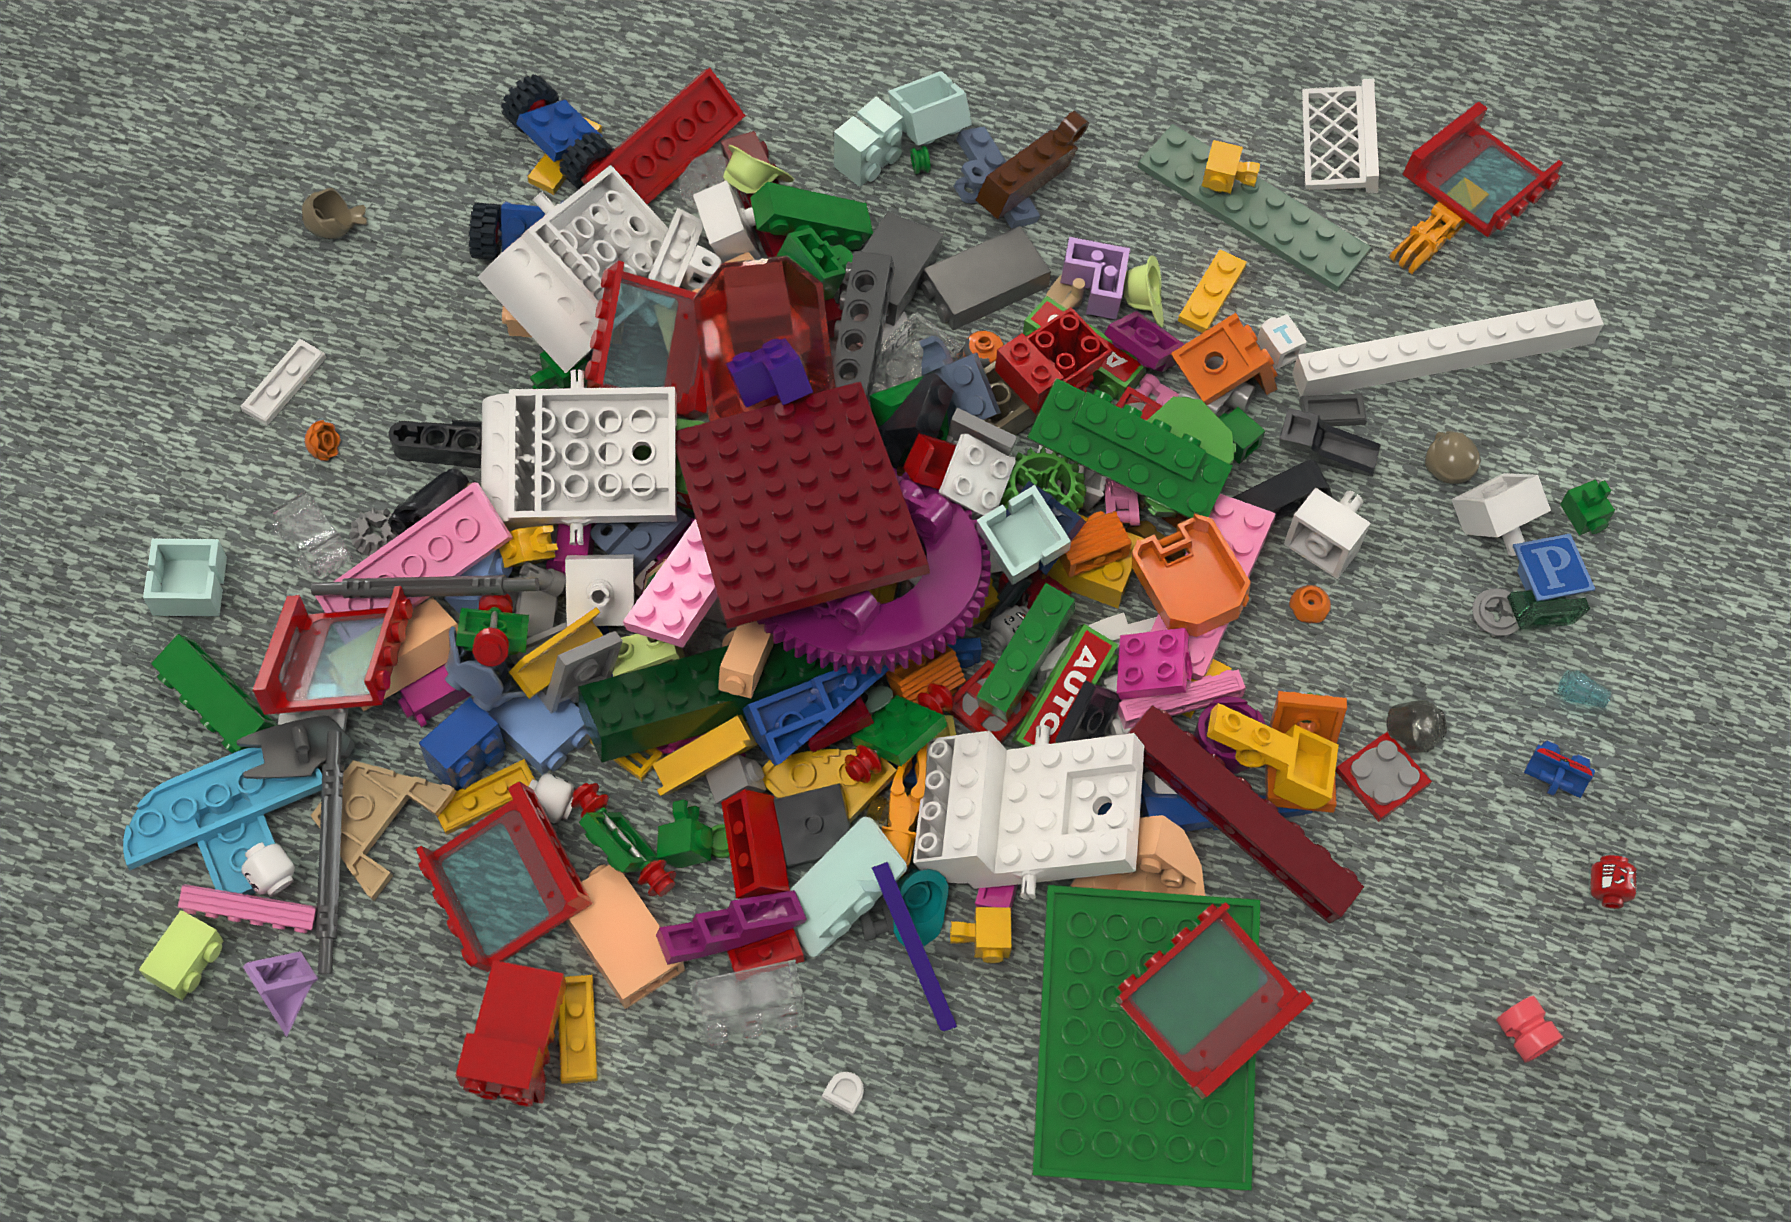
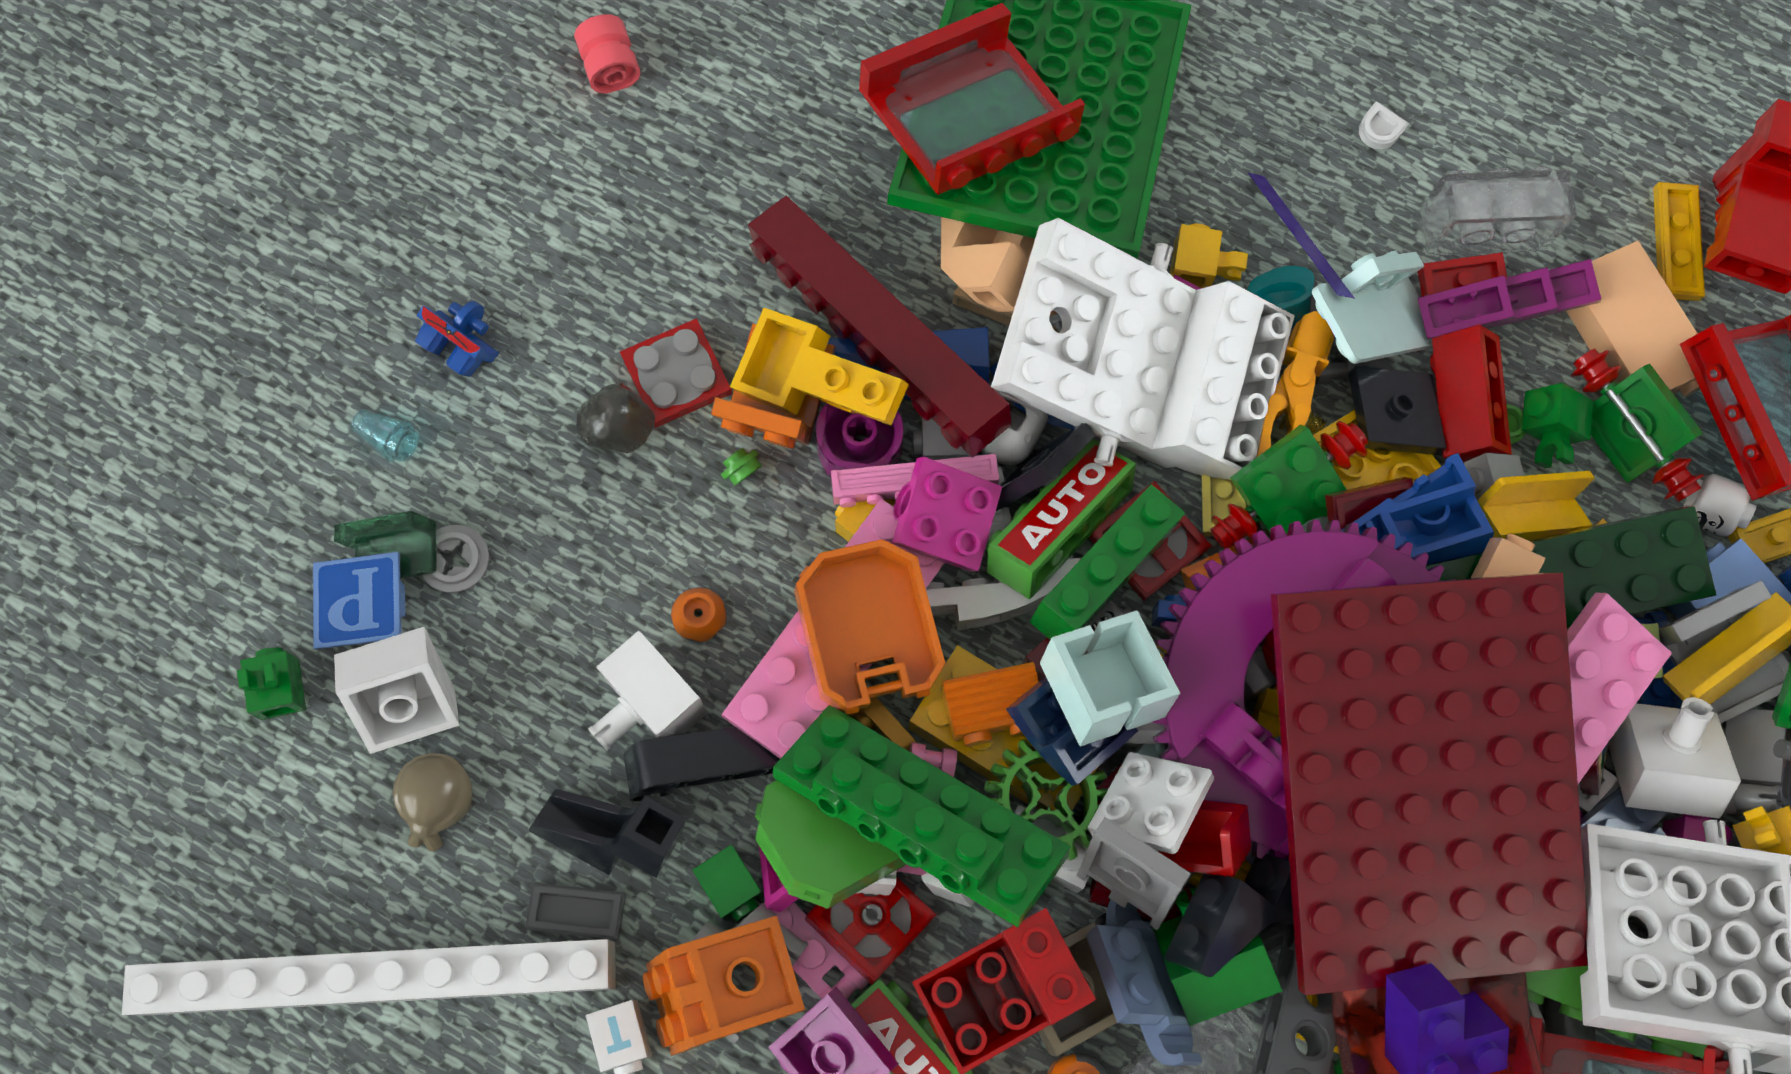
camera: 170 degrees left, 10 degrees up
(1613, 881) = (446, 193): red head -> none

